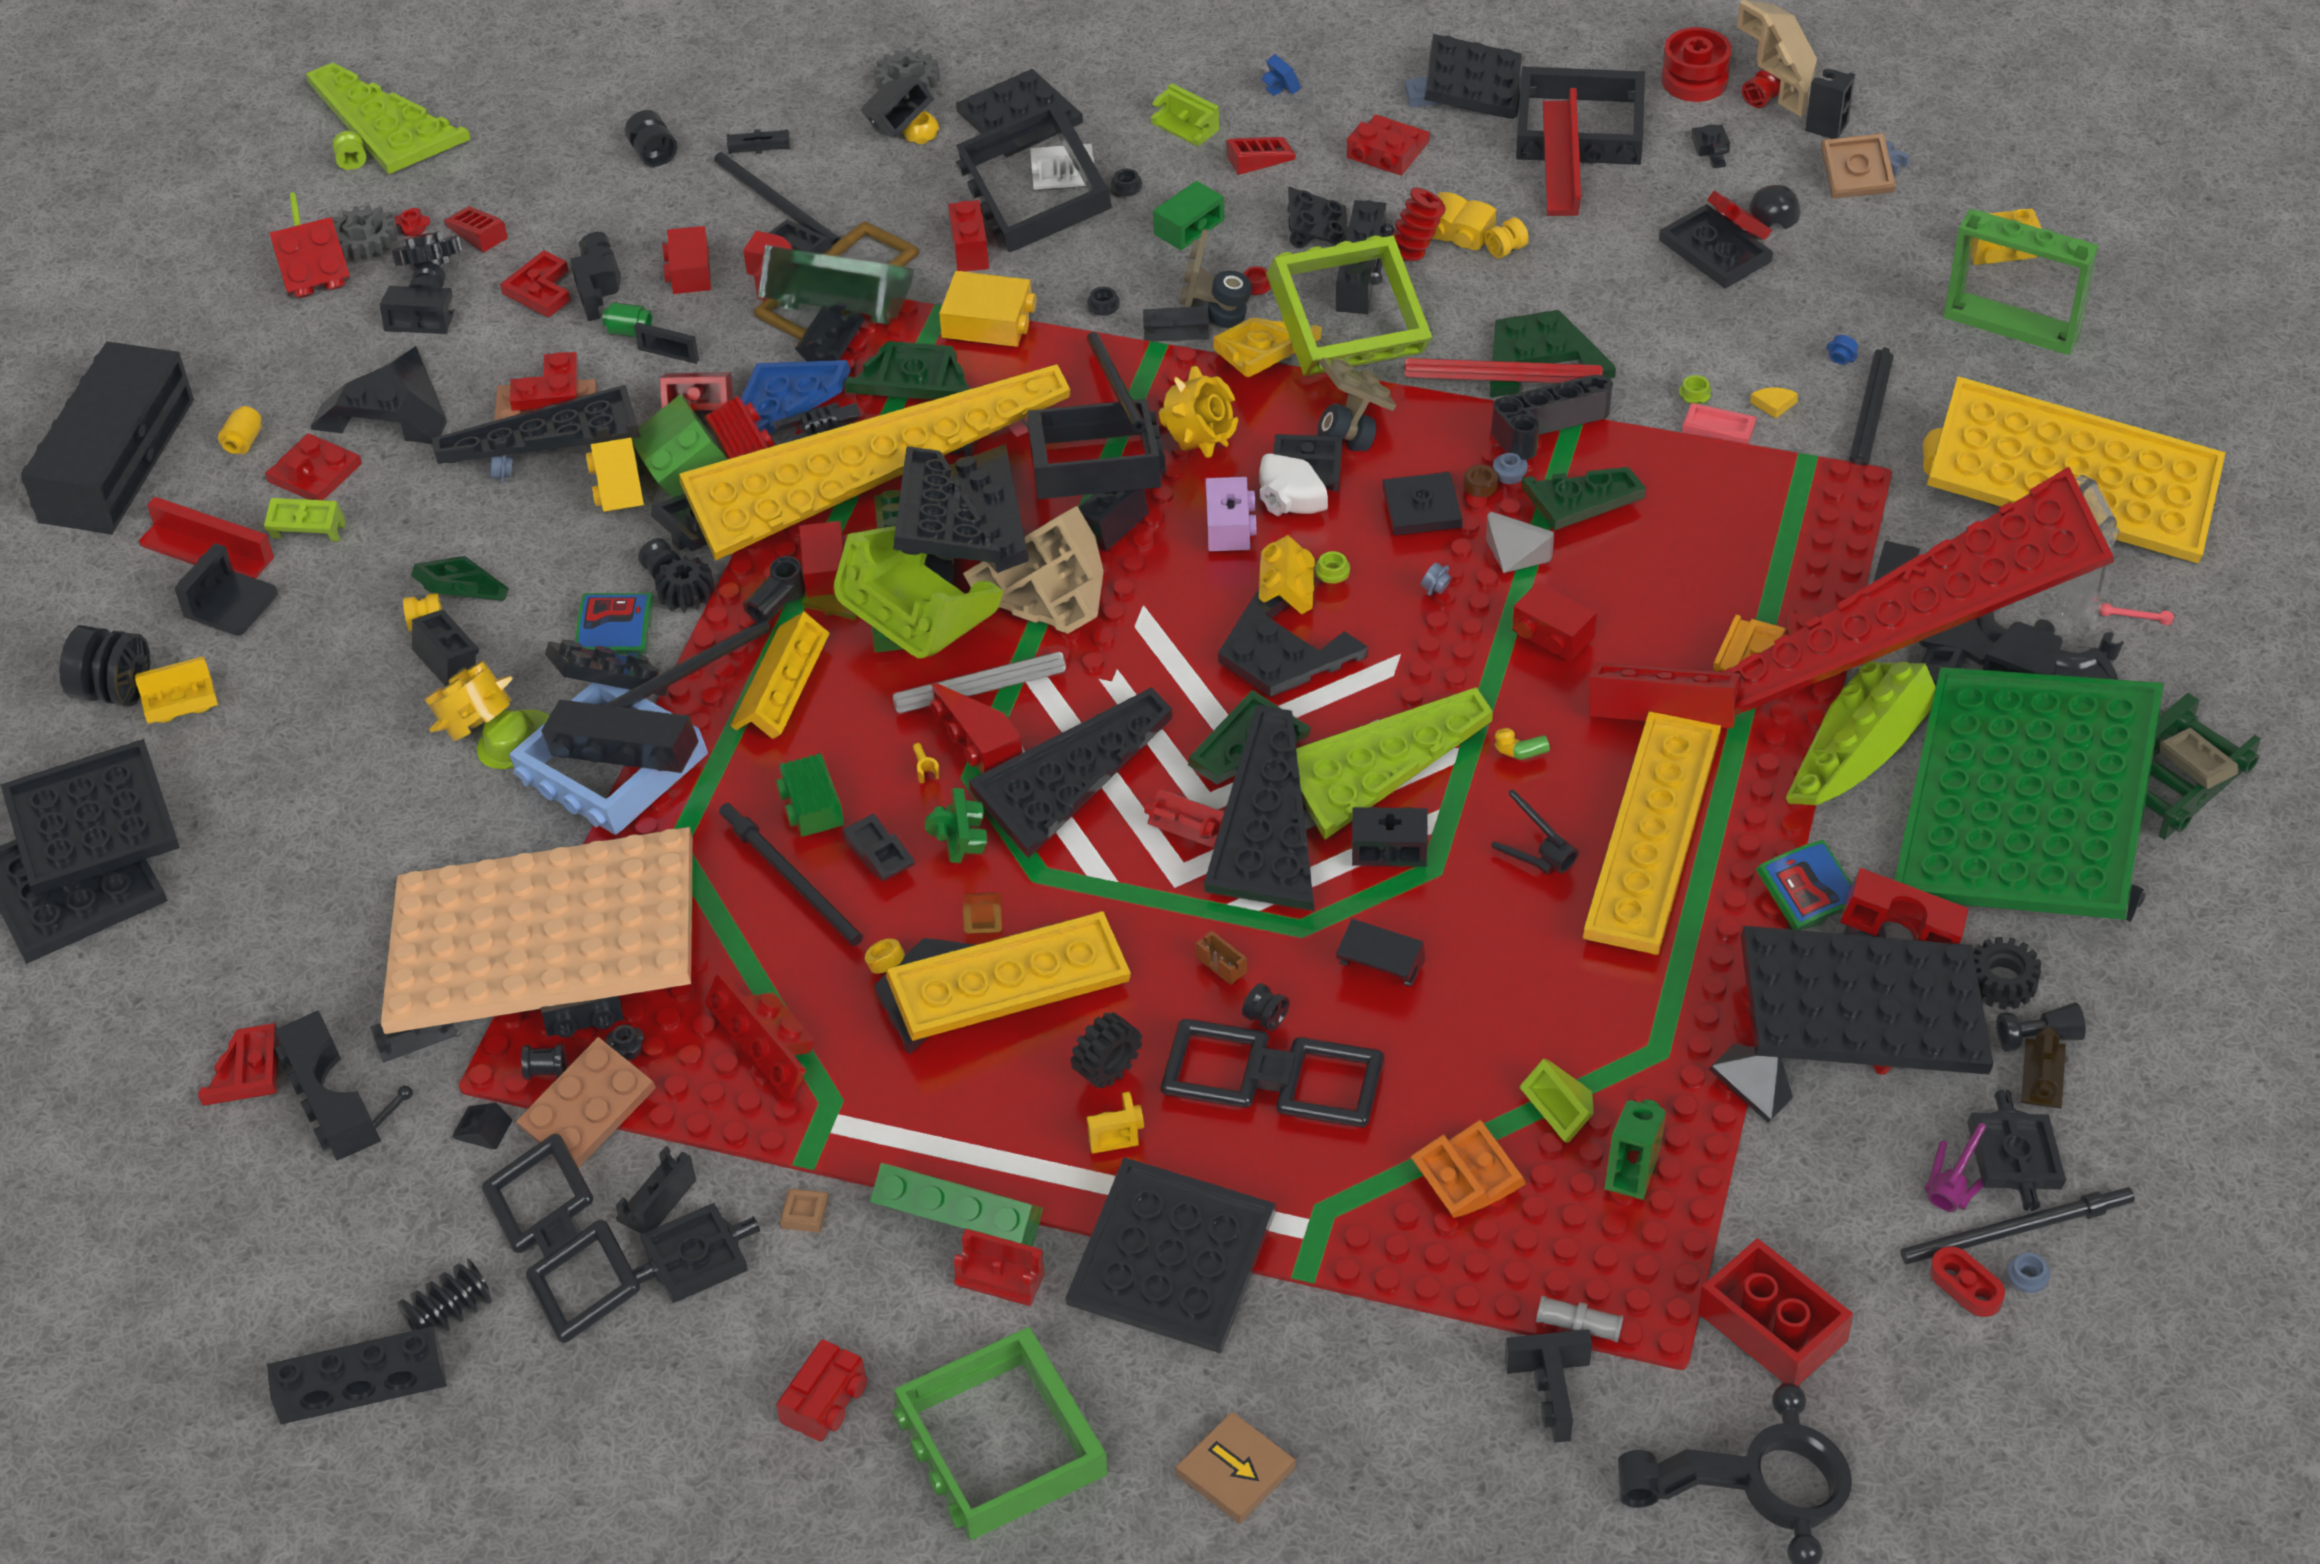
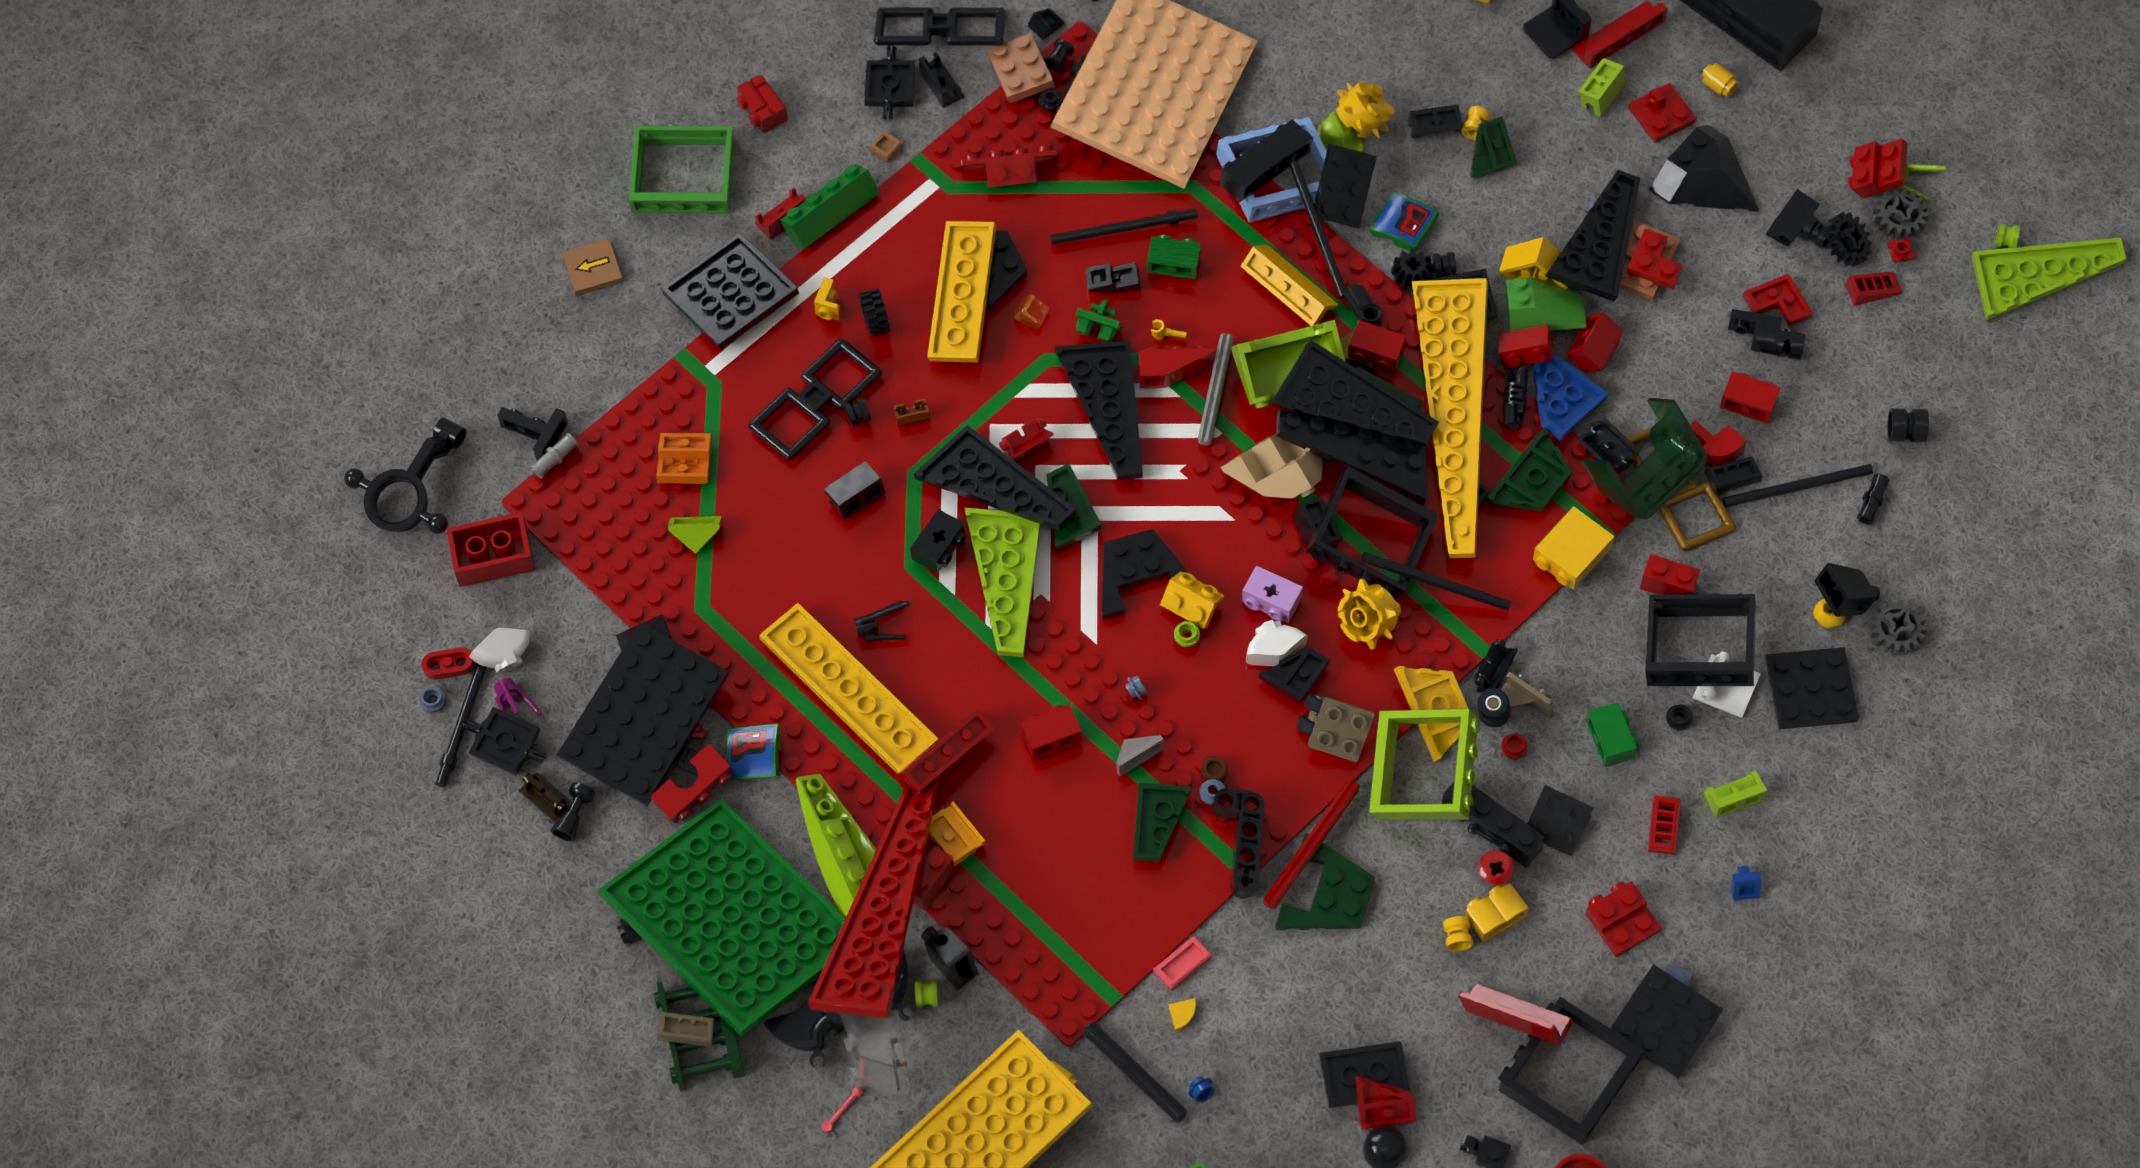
camera: 120 degrees right, 15 degrees up
(622, 317) = (1704, 336): green brick -> none
(666, 343) = (1667, 356): black slope -> none
(884, 955) = (1026, 245): yellow tile -> none
(1103, 301) = (1554, 631): black plate -> none
(1422, 503) = (1214, 721): black plate -> none
(1520, 749) = (965, 655): arm -> none
(1641, 1130) = (632, 537): green torso -> none
(1695, 389) = (1225, 959): lime plate -> none
(1900, 1221) = (502, 649): none -> white piece
(2011, 957) = (623, 806): black tyre -> none

